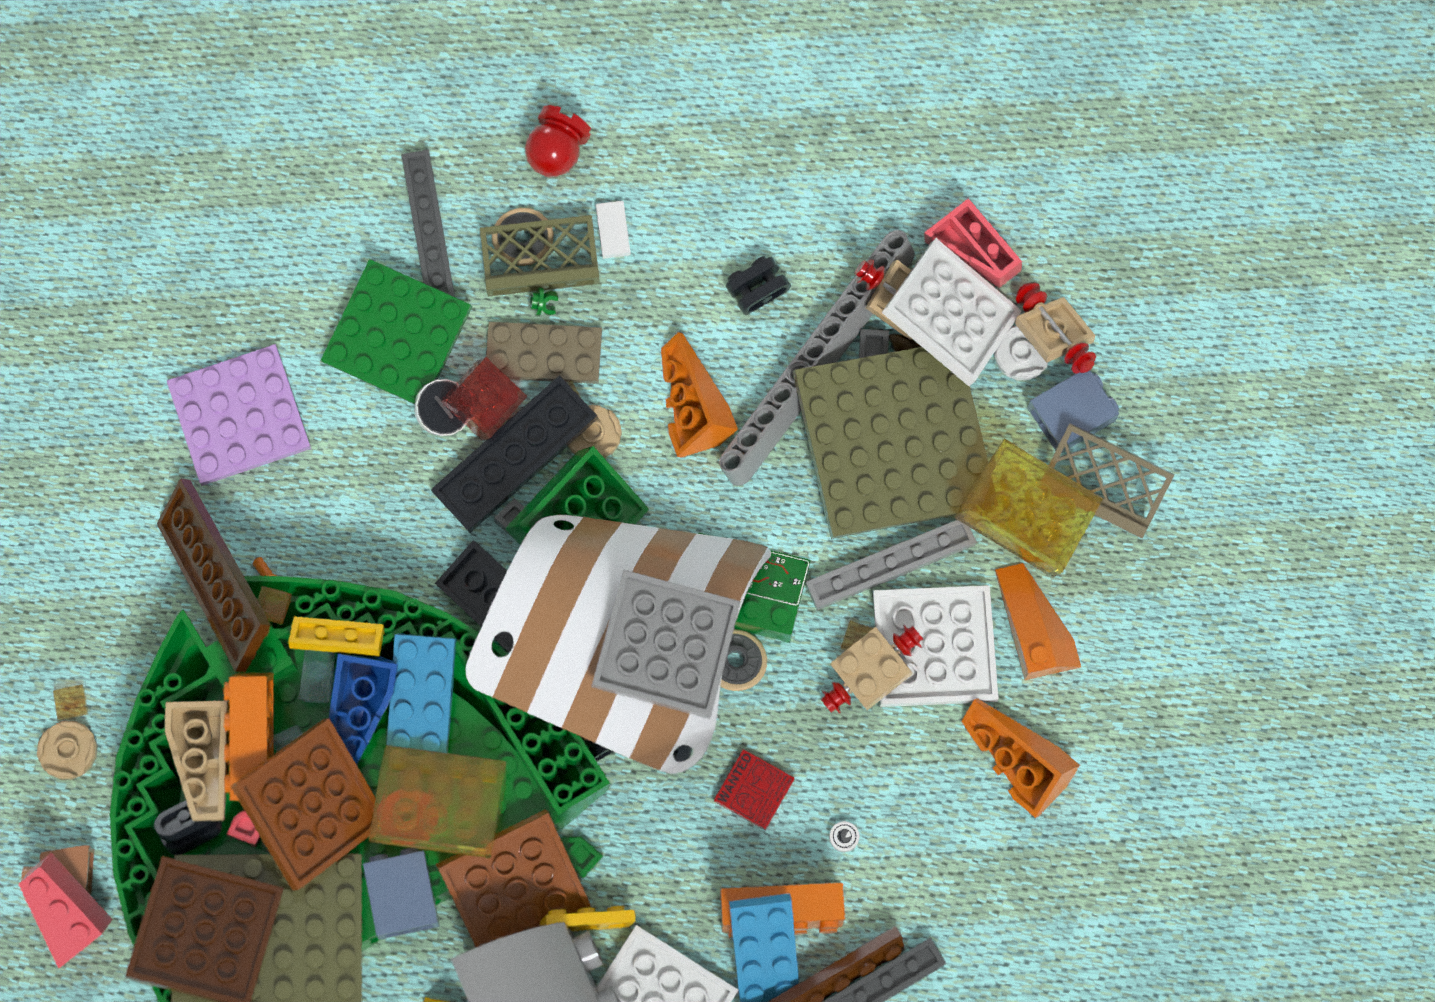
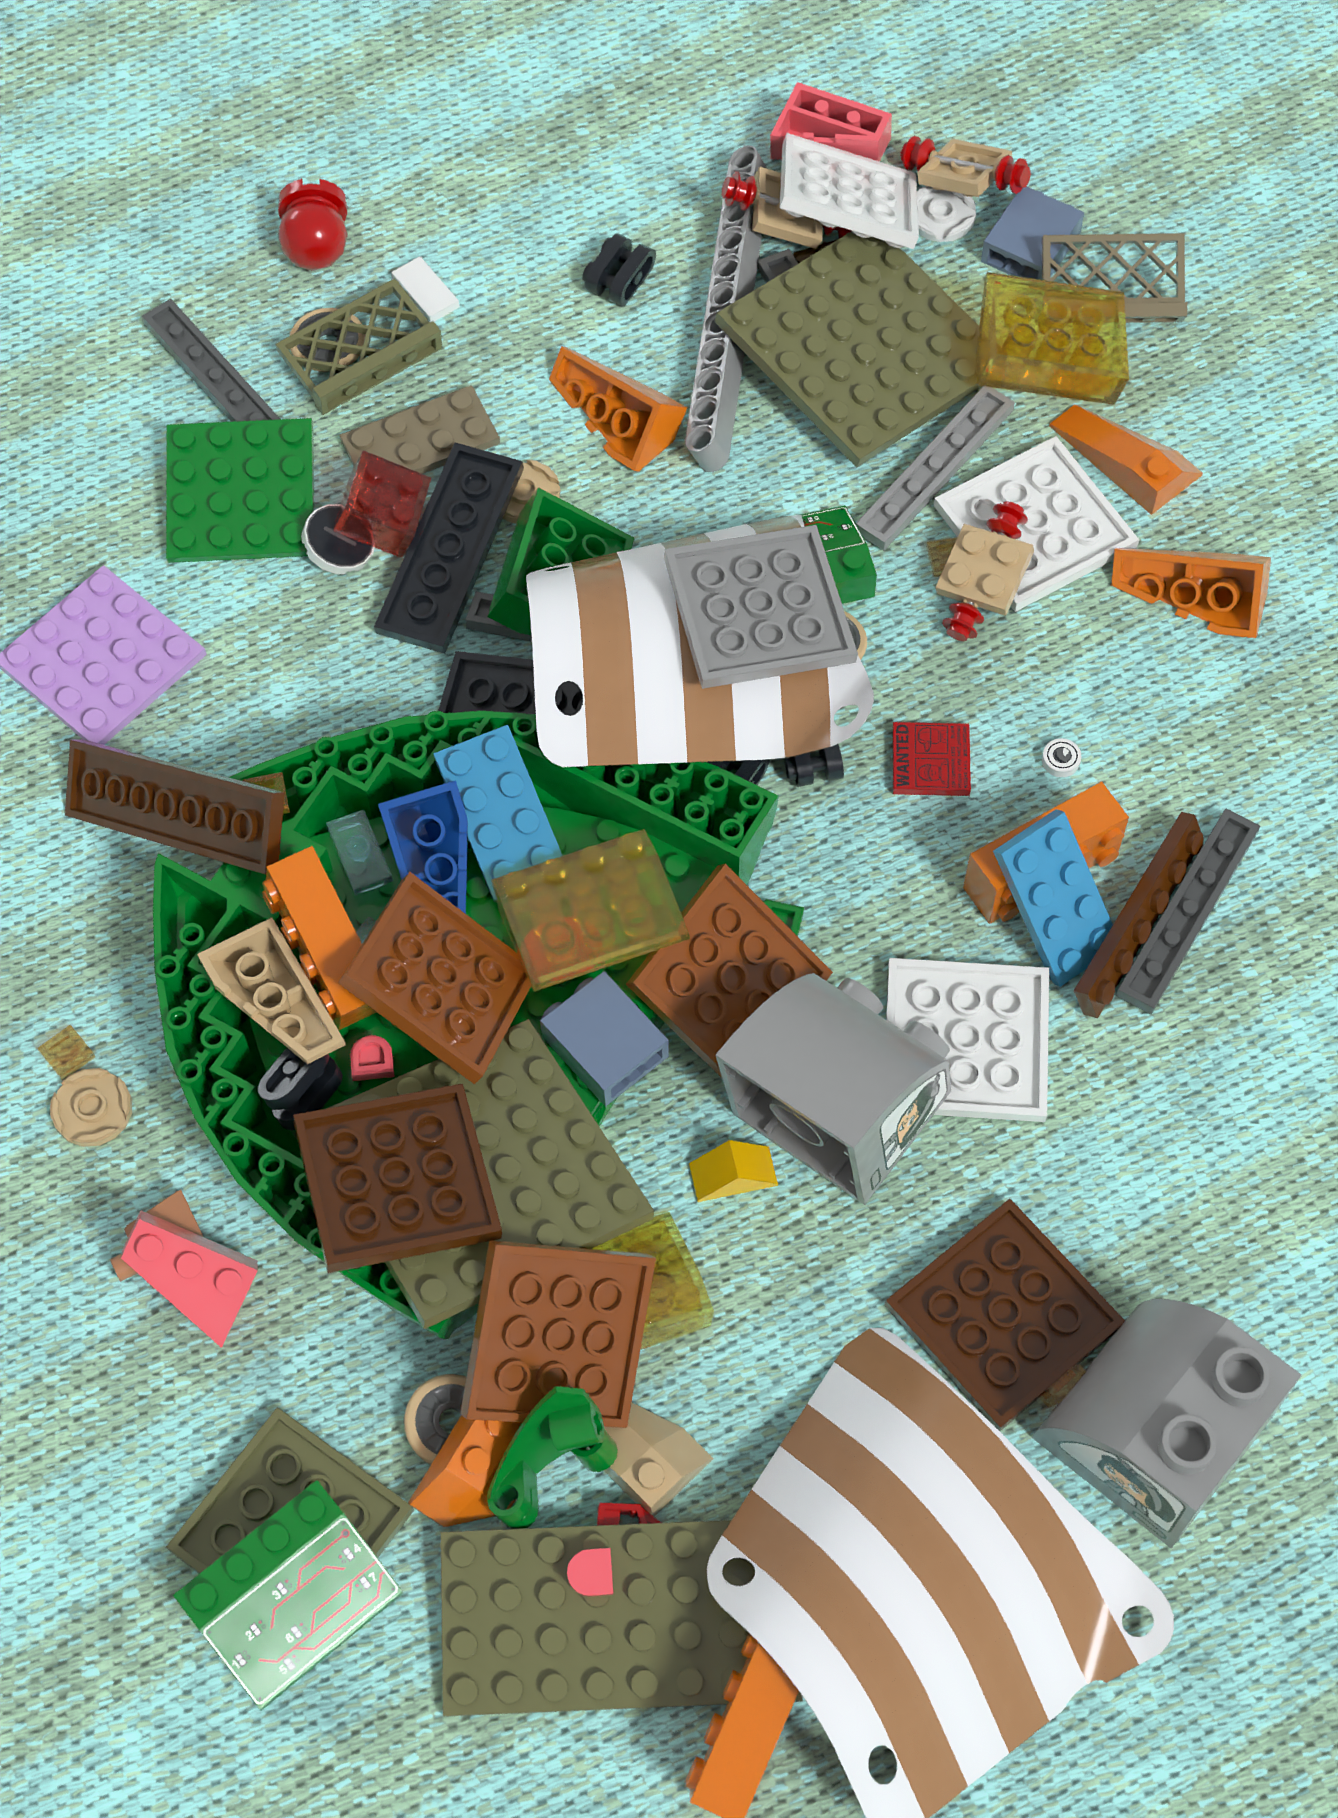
camera: 25 degrees left, 10 degrees down
(336, 636) = (364, 789): yellow plate -> none
(539, 299) = (384, 388): green plate -> none
(589, 919) = (858, 964): yellow plate -> none

